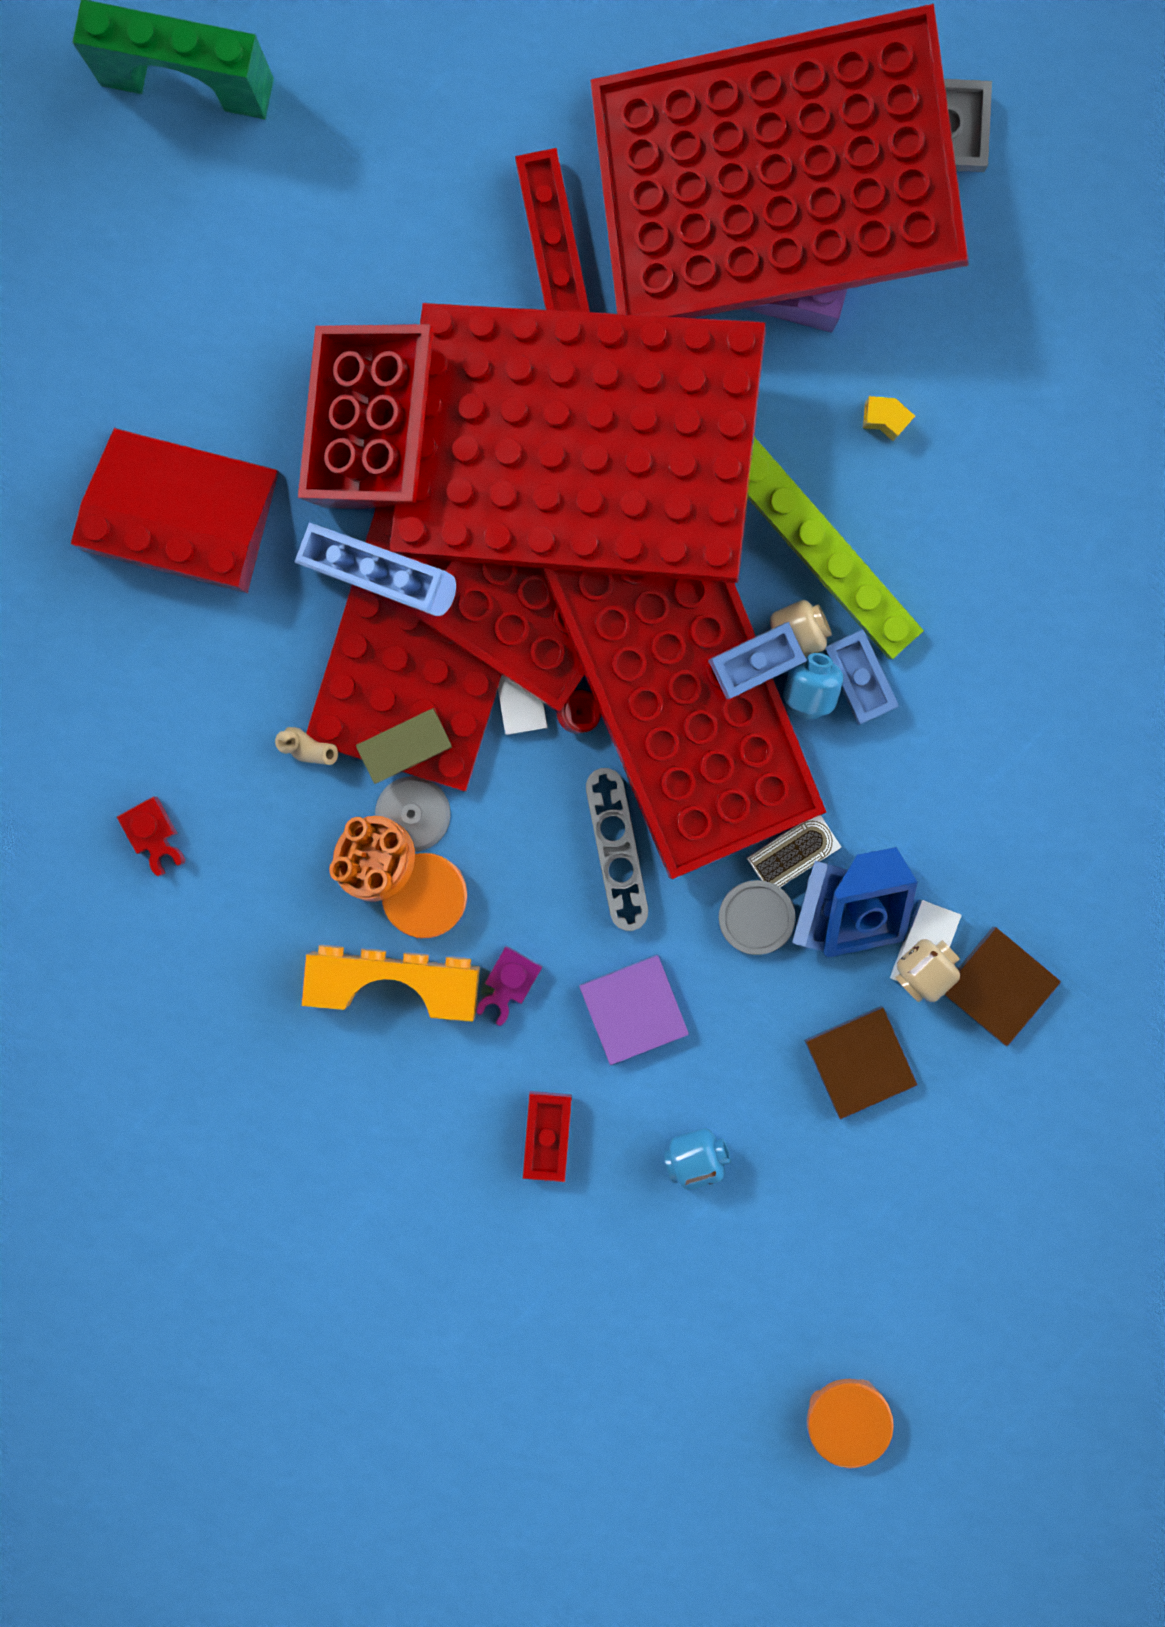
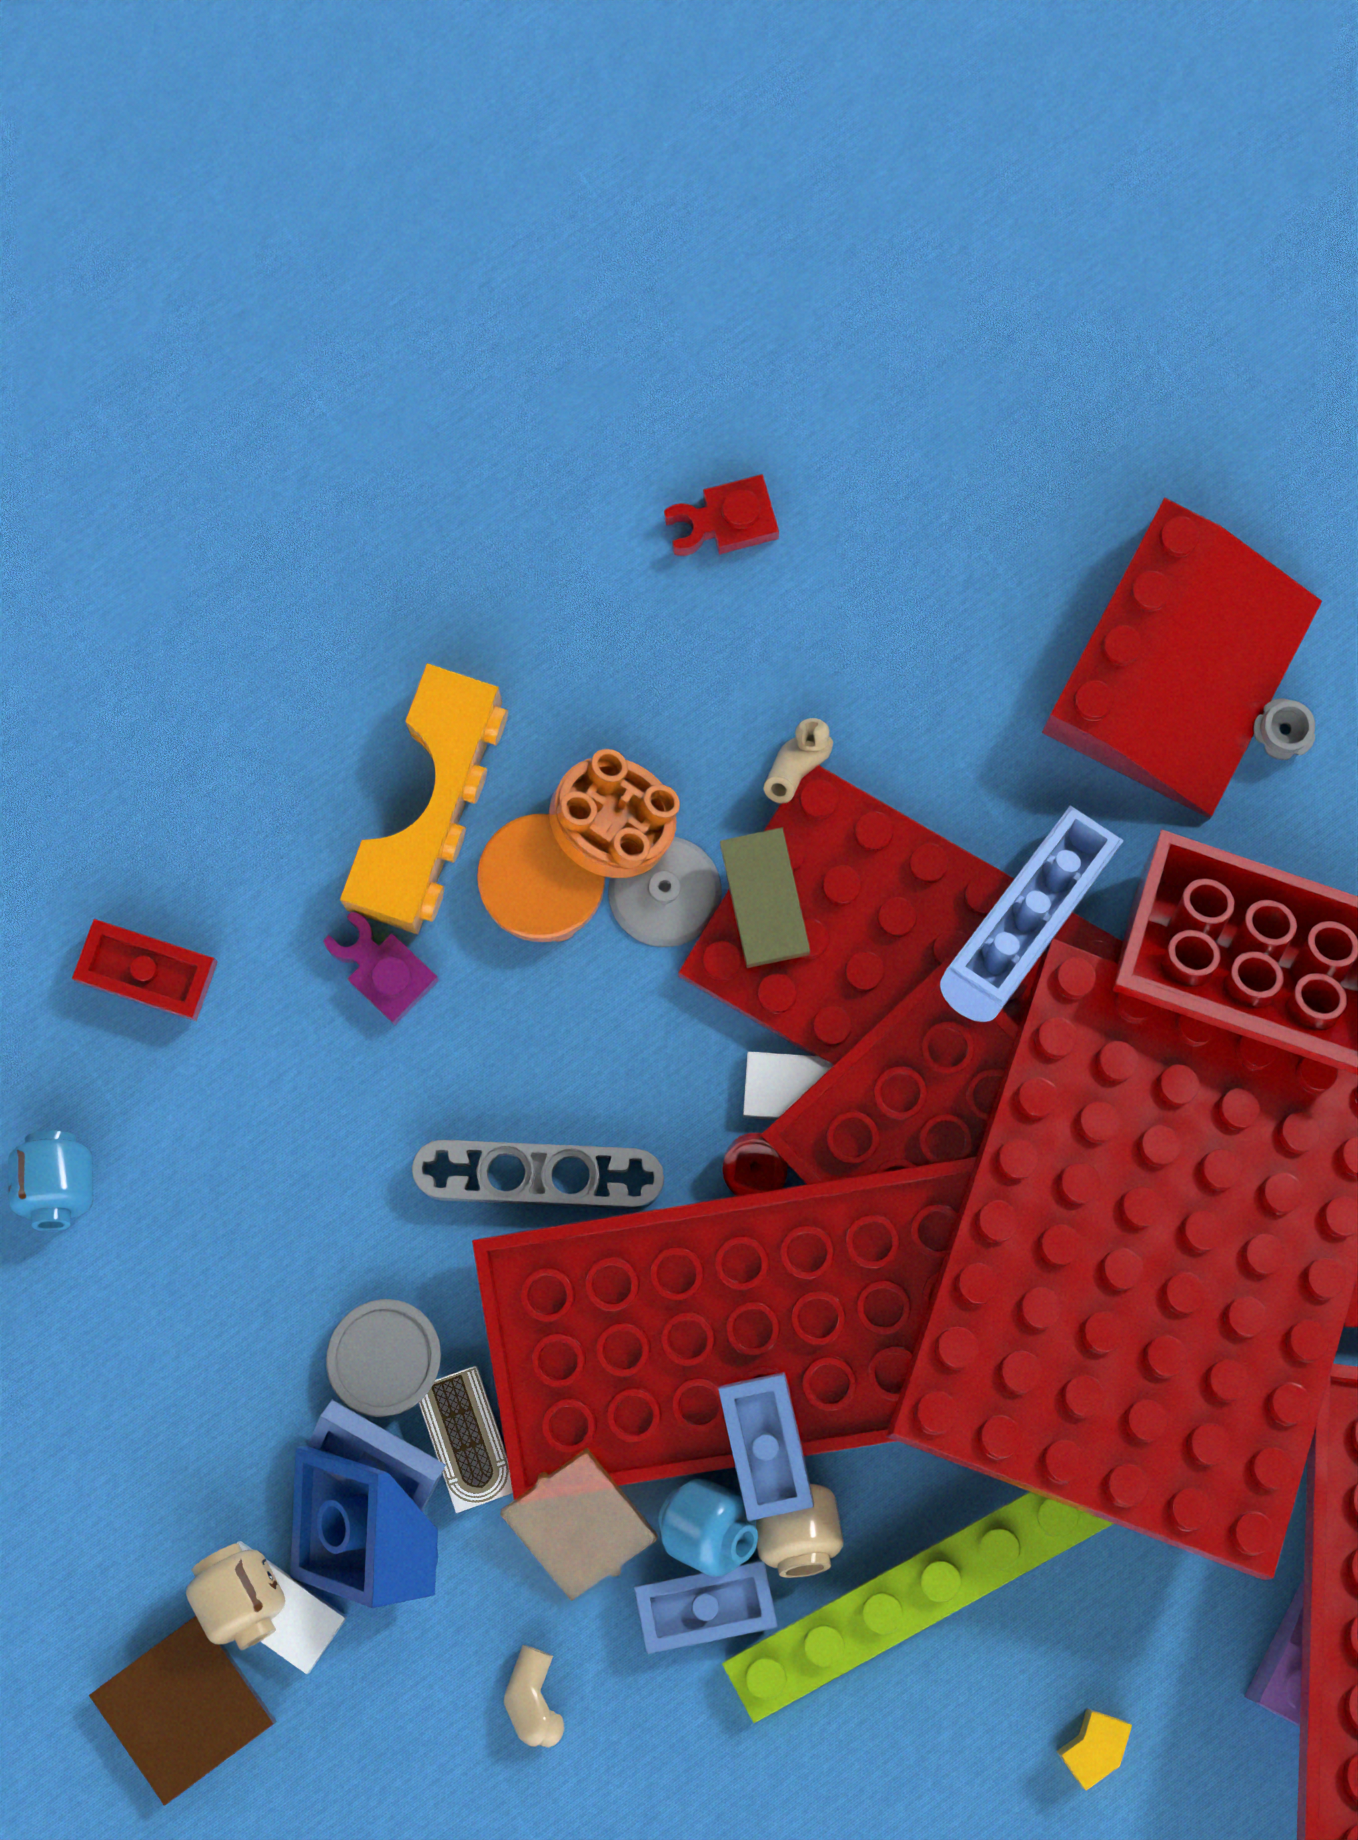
camera: 105 degrees right, 10 degrees down
(203, 423) = (1294, 715): none -> light grey plate
(633, 1009) = (295, 1142): medium lavender tile -> none
(830, 768) = (579, 1524): none -> clear orange piece
(860, 1062) = (125, 1463): reddish brown tile -> none
(946, 774) = (525, 1703): none -> tan arm

